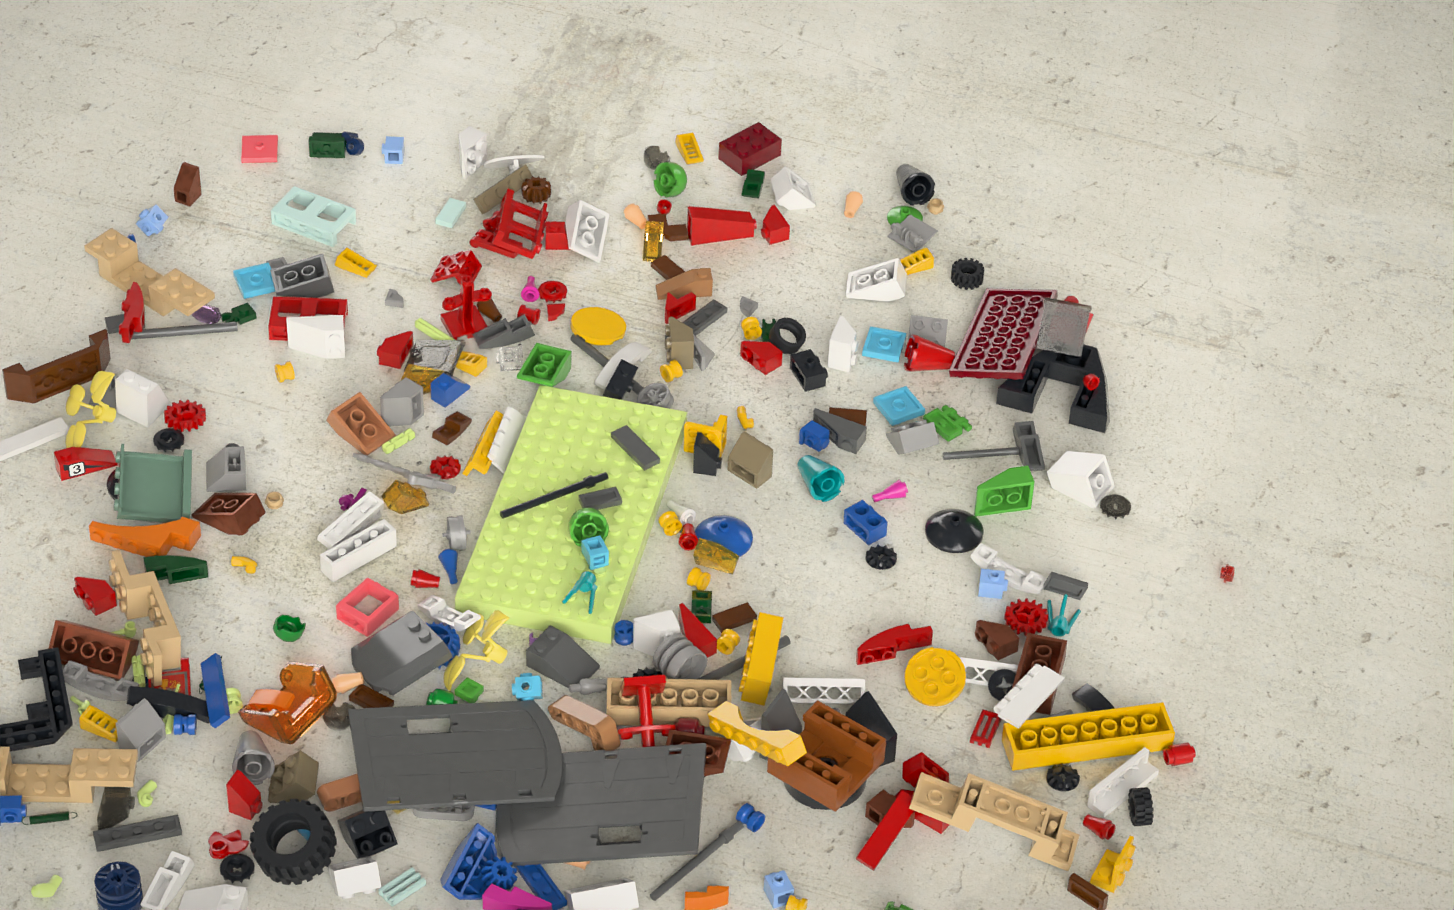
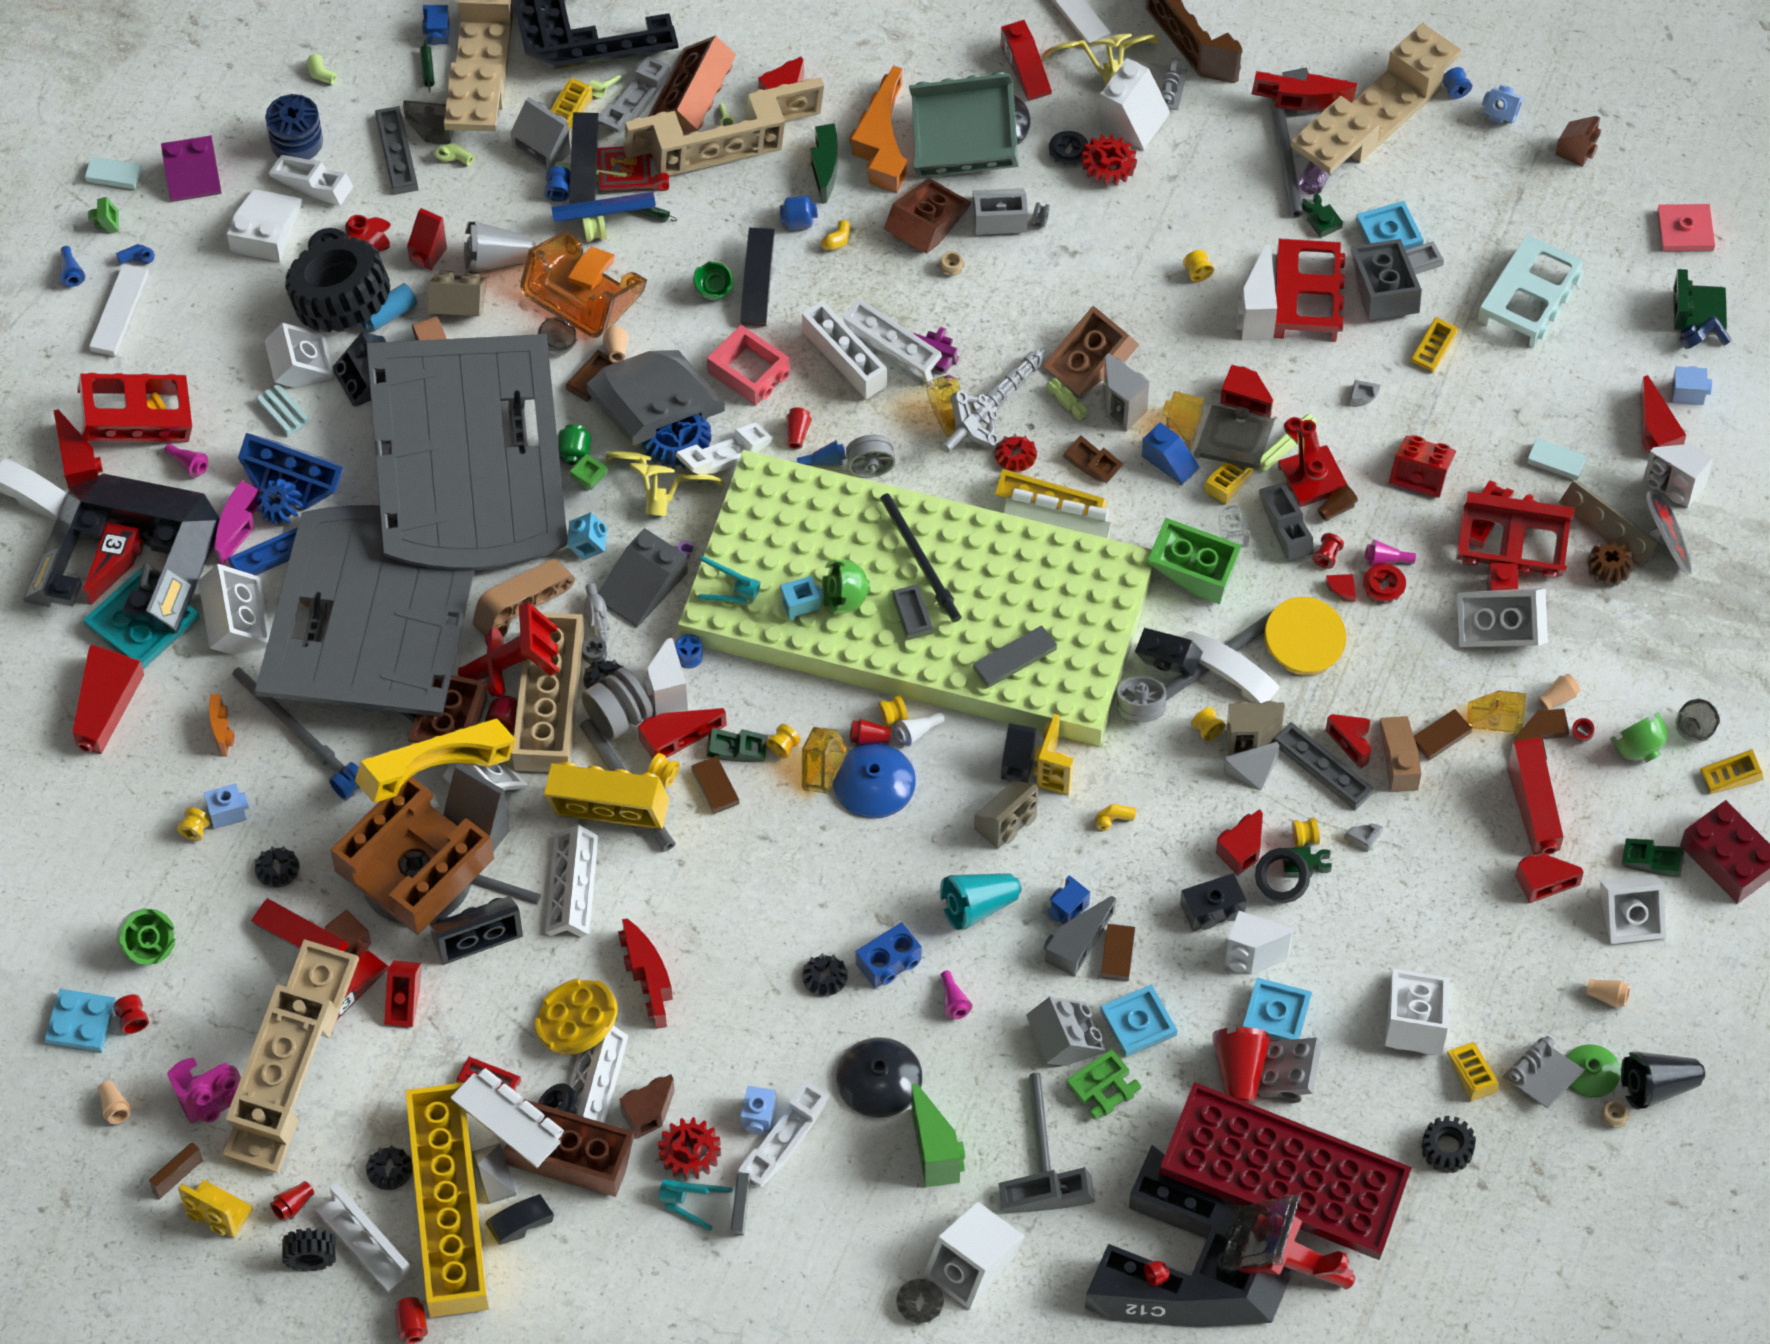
camera: 95 degrees right, 15 degrees up
(223, 583) = (798, 212): none -> blue head
(287, 603) = (757, 276): none -> black slope
(422, 165) = (1658, 423): none -> red slope
(821, 864) = (268, 875): none -> black gear
(1032, 871) = (206, 1094): none -> dark pink piece

